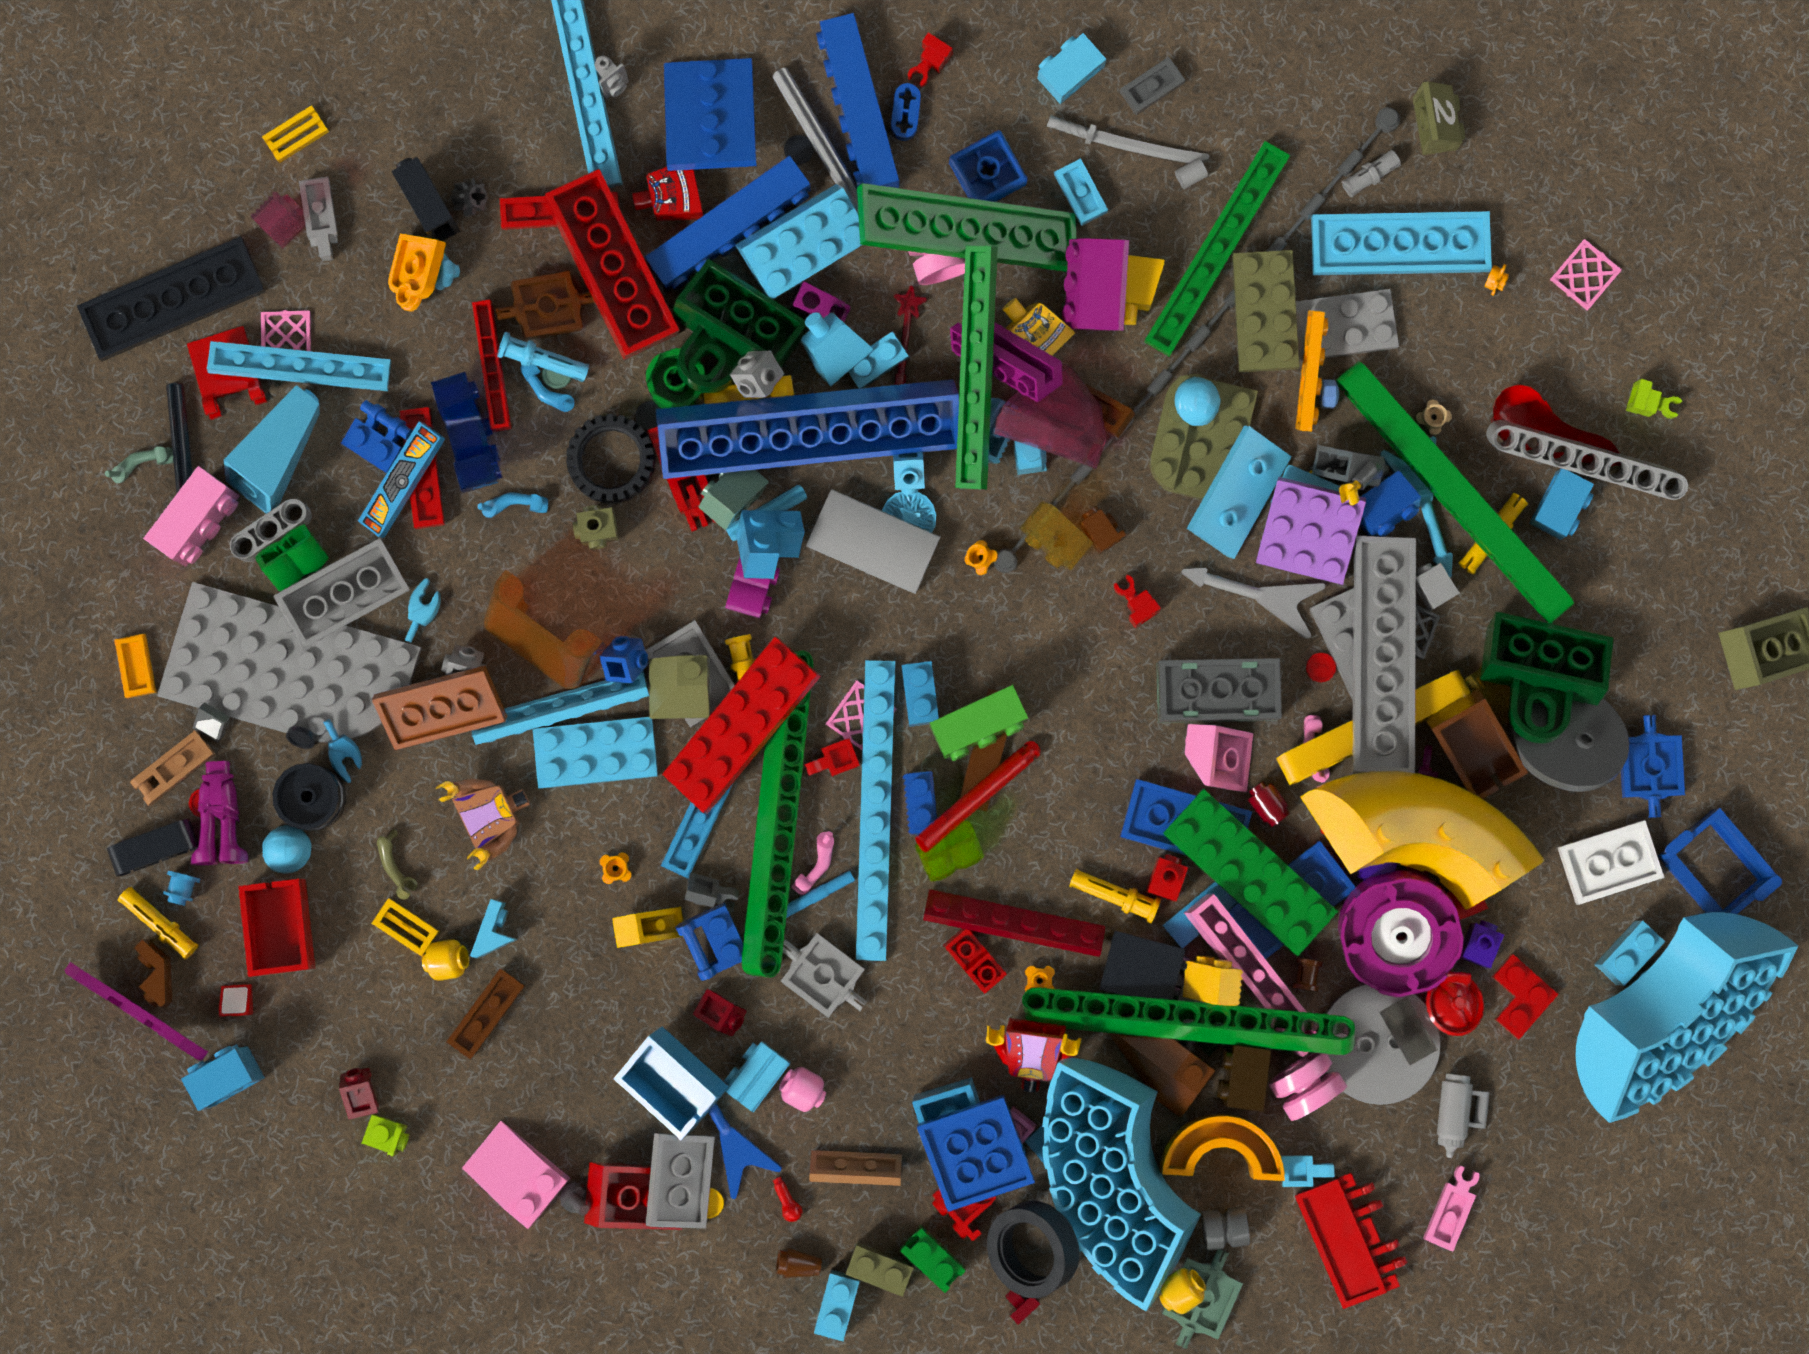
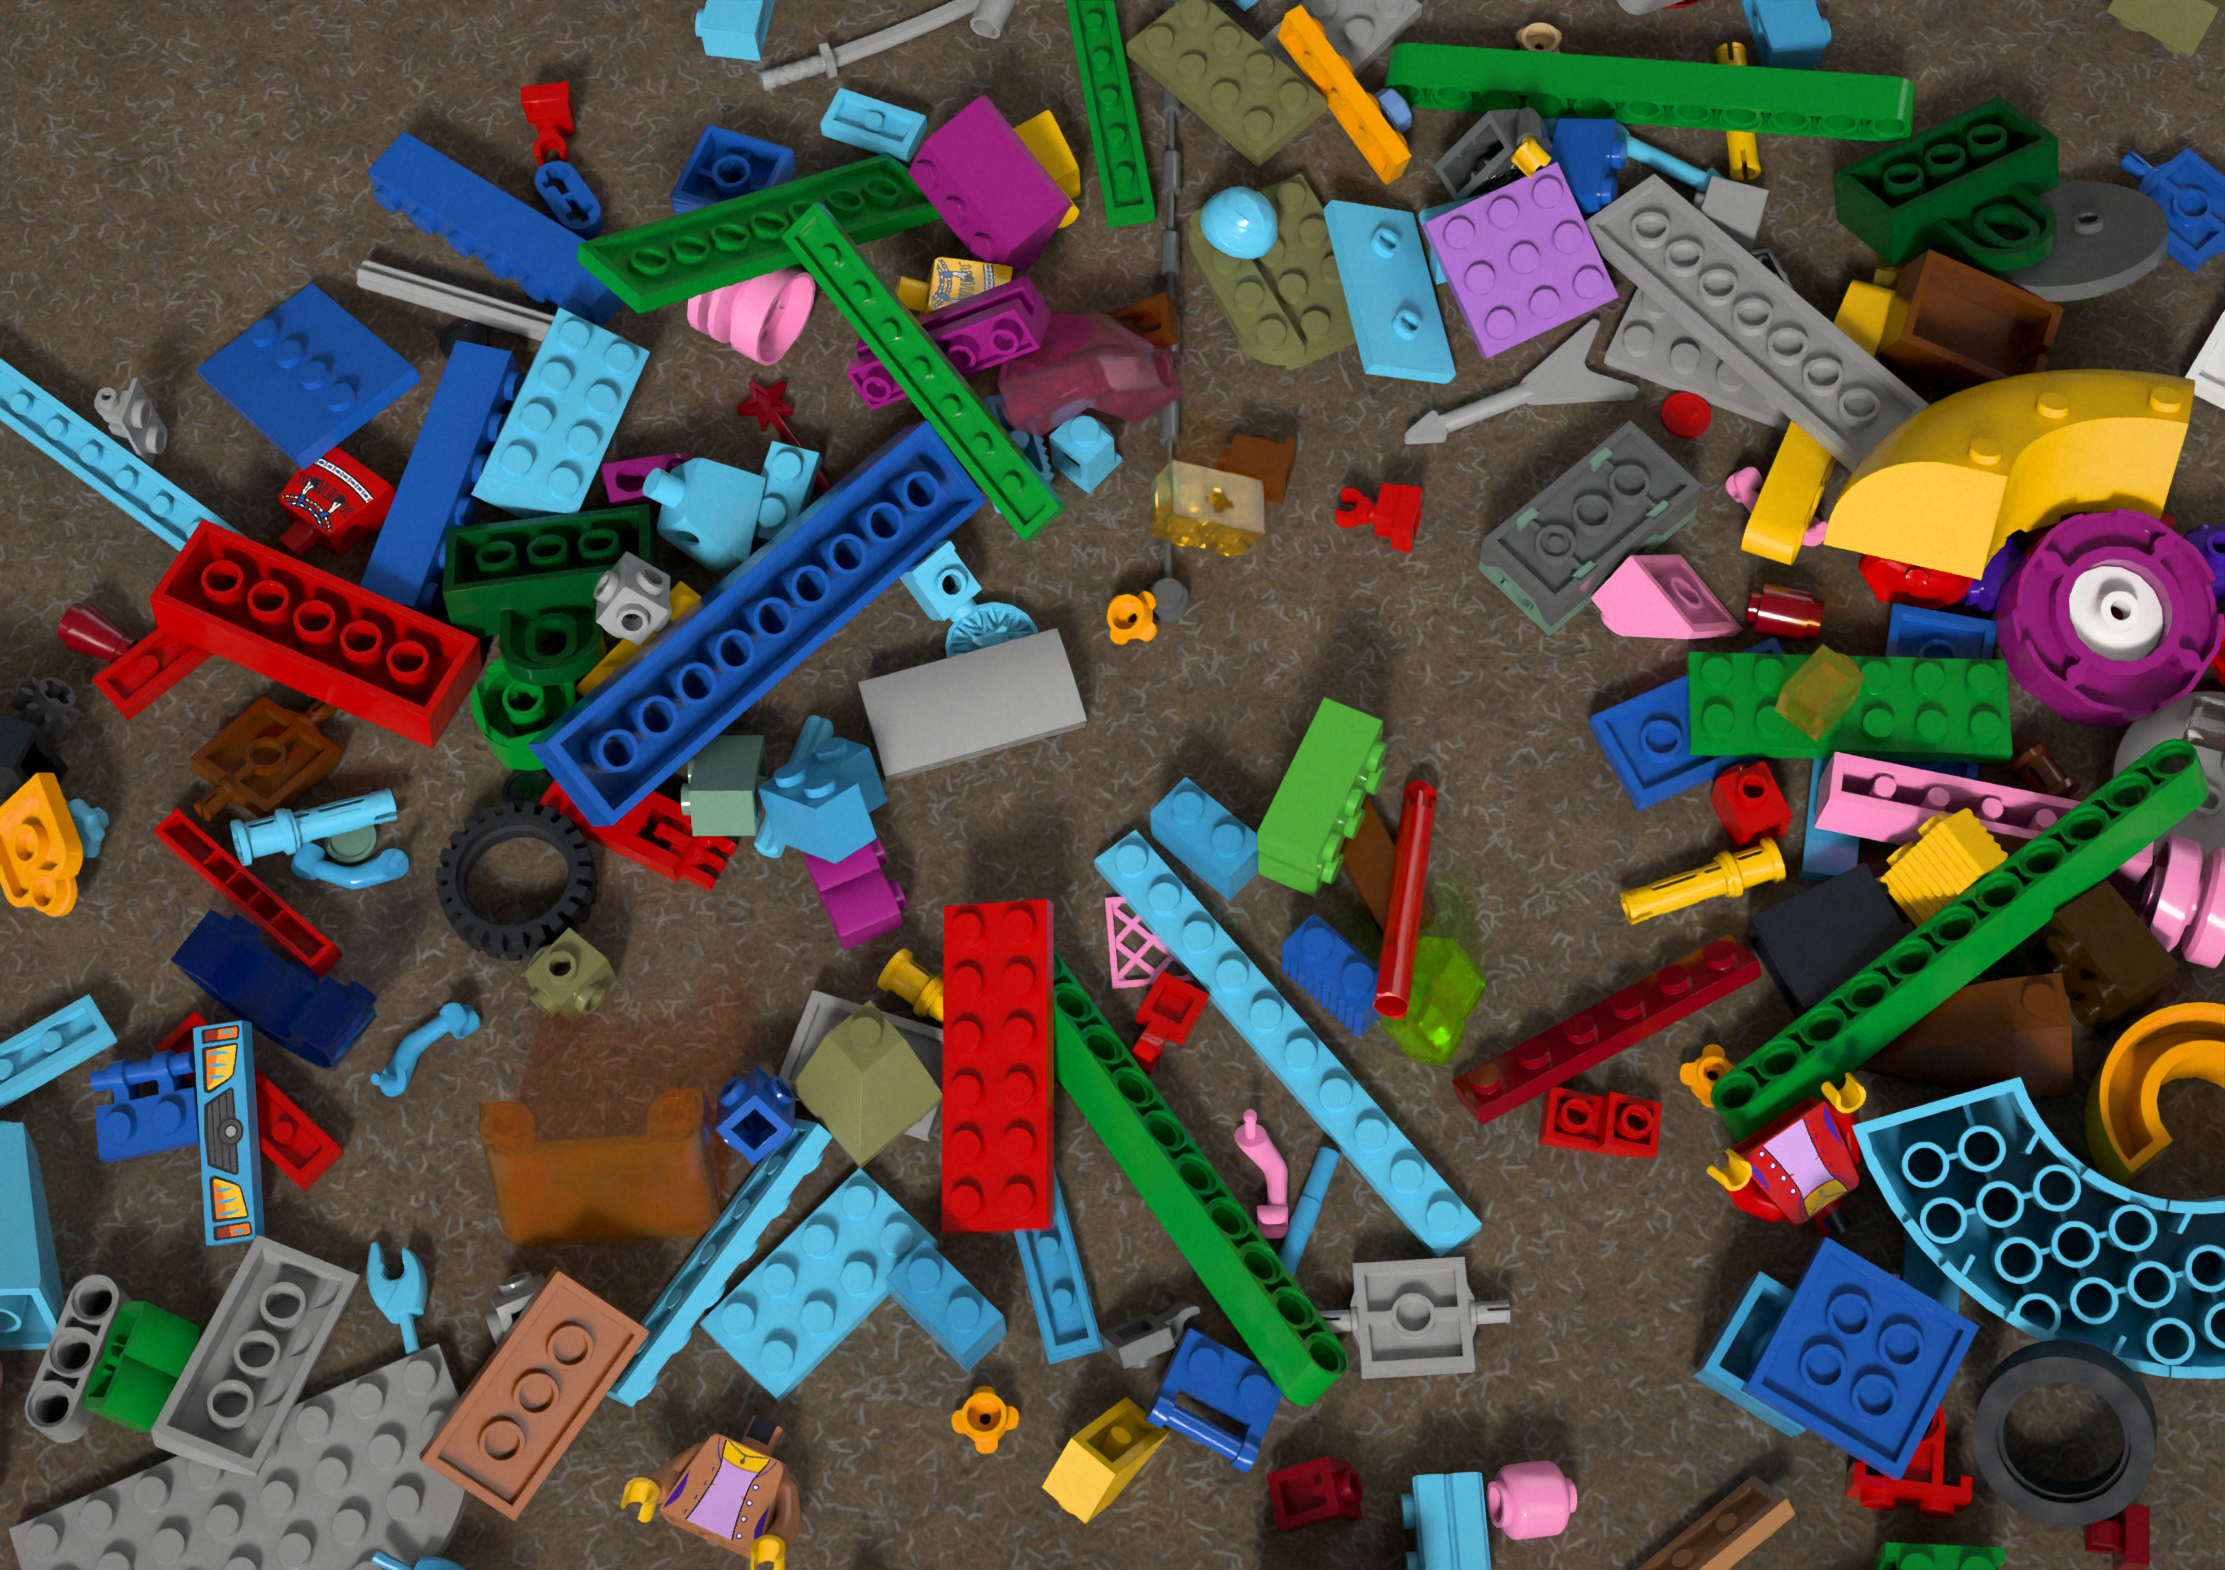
camera: 35 degrees left, 20 degrees down
(518, 173) = (94, 633): none -> dark red cone
(636, 809) = (946, 1305): none -> dark azure brick
(1236, 861) = (1820, 692): none -> clear yellow brick

